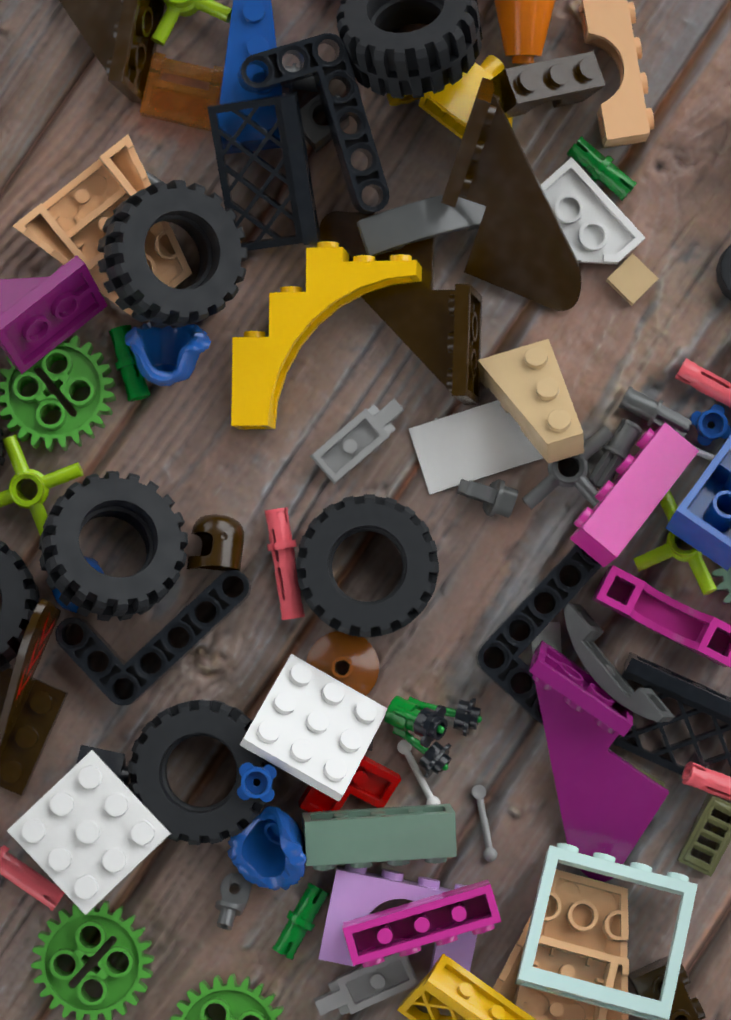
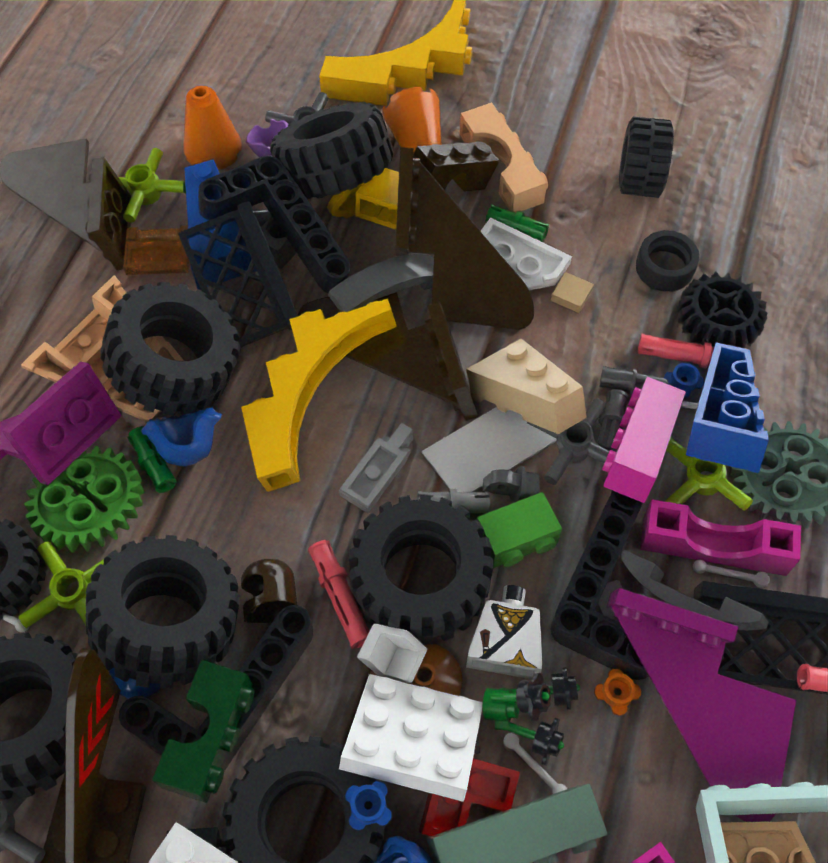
camera: 15 degrees left, 25 degrees down
(116, 704) = (196, 766): none -> dark green arch
(317, 641) = (392, 653): none -> white panel
(423, 499) = (472, 501): none -> light grey pin
(431, 652) = (508, 637): none -> white torso
(476, 549) = (521, 530): none -> bright green brick
(479, 793) = (602, 768): light grey hinge -> none
(526, 734) = (618, 680): none -> orange plate
(697, 662) = (761, 579): none -> white hinge

